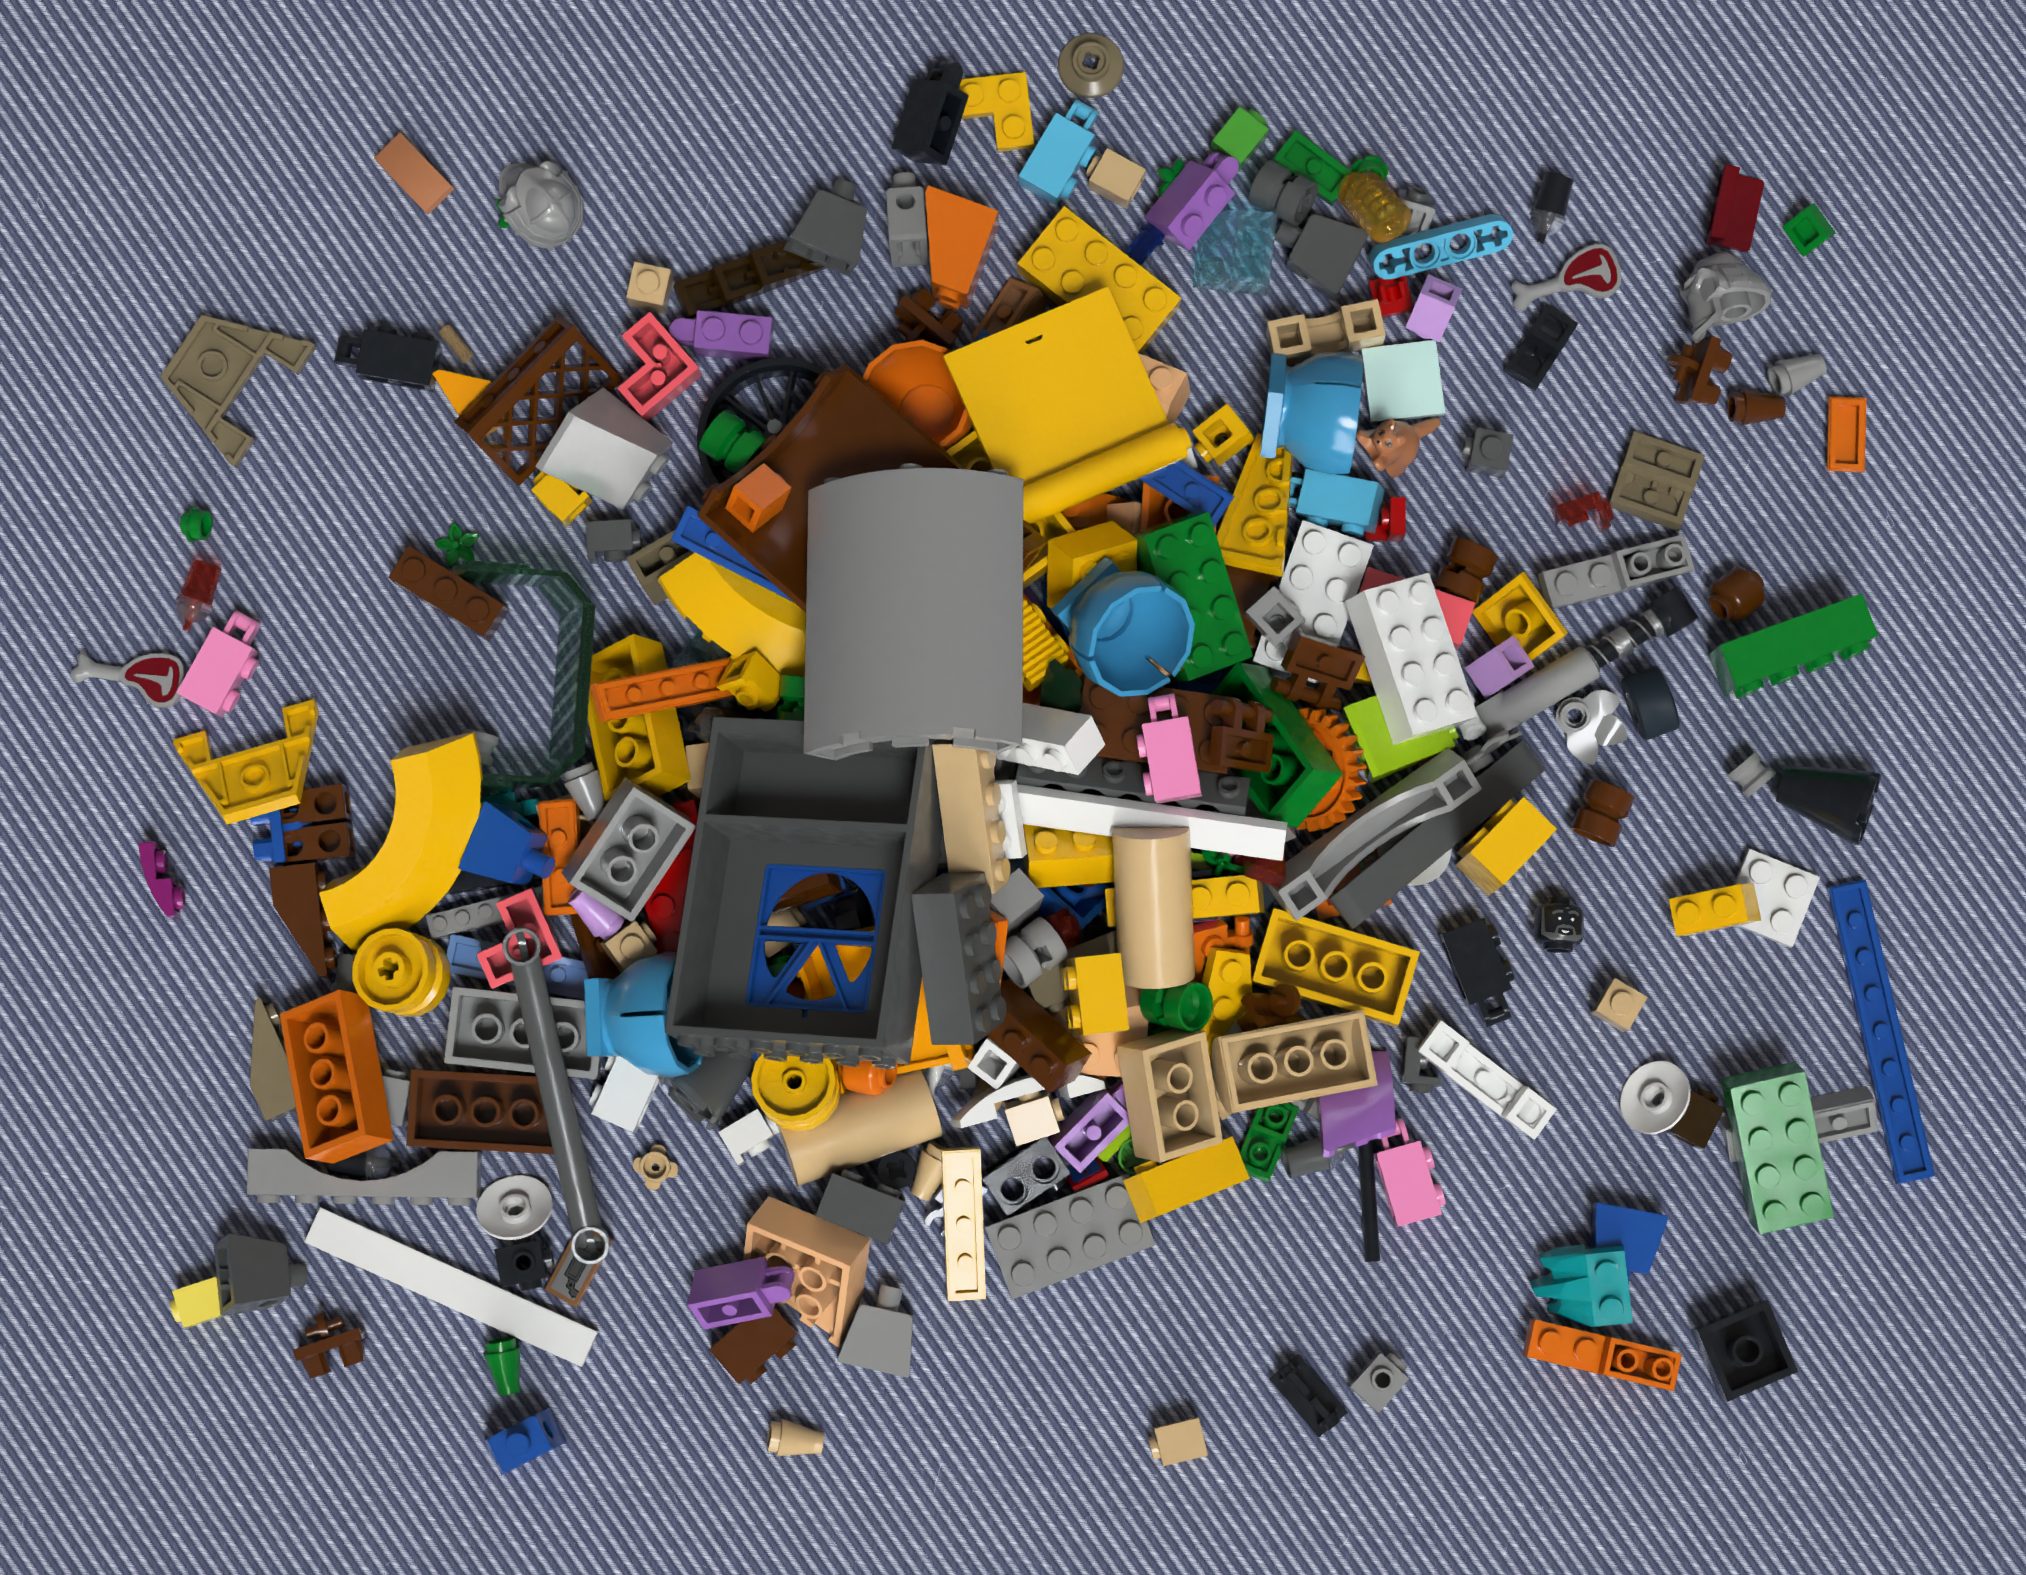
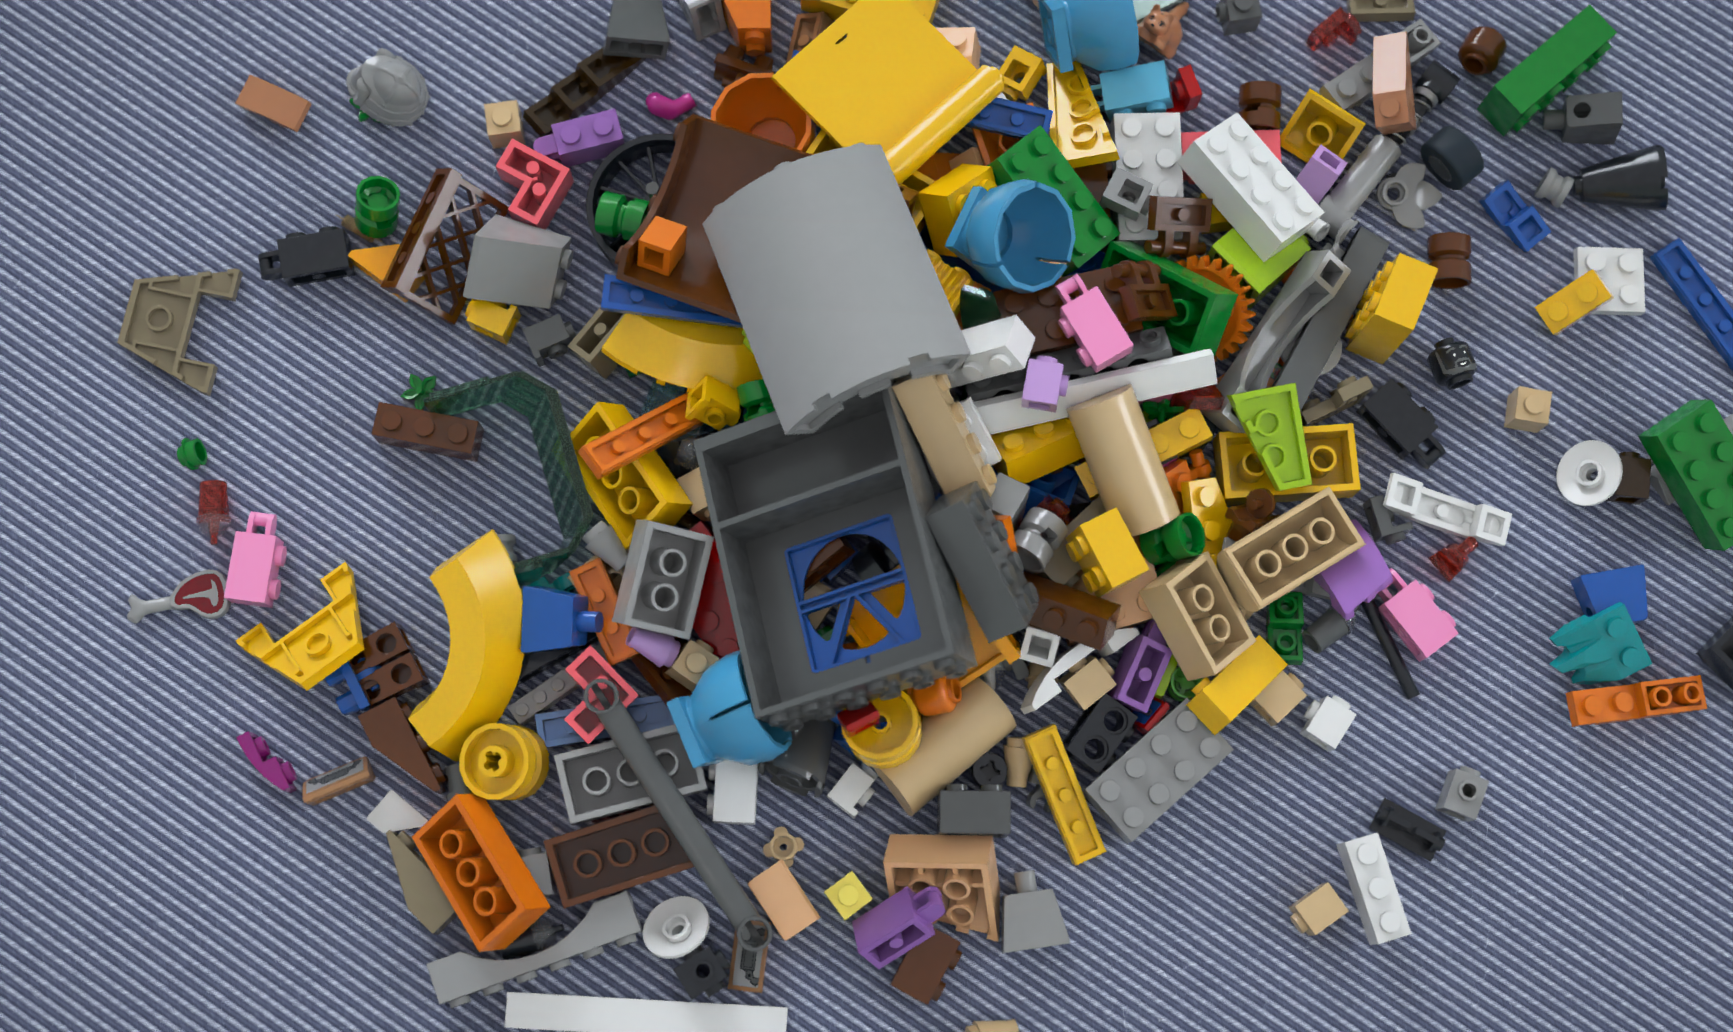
camera: 25 degrees left, 5 degrees down
(225, 925) = (337, 781): none -> medium nougat slope
(272, 982) = (395, 814): none -> white sticker
(482, 331) = (377, 207): none -> green wheel
(634, 1222) = (783, 900): none -> light nougat slope
(701, 1243) = (848, 895): none -> light yellow brick
(771, 1072) = (858, 720): none -> red slope
(831, 332) = (668, 108): none -> dark pink arm
(1095, 796) = (1044, 384): none -> lavender brick
(1228, 1208) = (1279, 697): none -> tan brick
(1245, 1442) = (1373, 889): none -> white brick
(1269, 1252) = (1327, 721): none -> white brick
(1328, 933) = (1276, 433): none -> lime wing
(1426, 917) = (1345, 396): none -> dark tan plate
(1474, 1132) = (1453, 557): none -> clear red piece
(1614, 600) = (1393, 84): none -> nougat slope
(1697, 789) = (1513, 217): none -> blue slope
(1827, 724) = (1587, 118): none -> dark grey torso

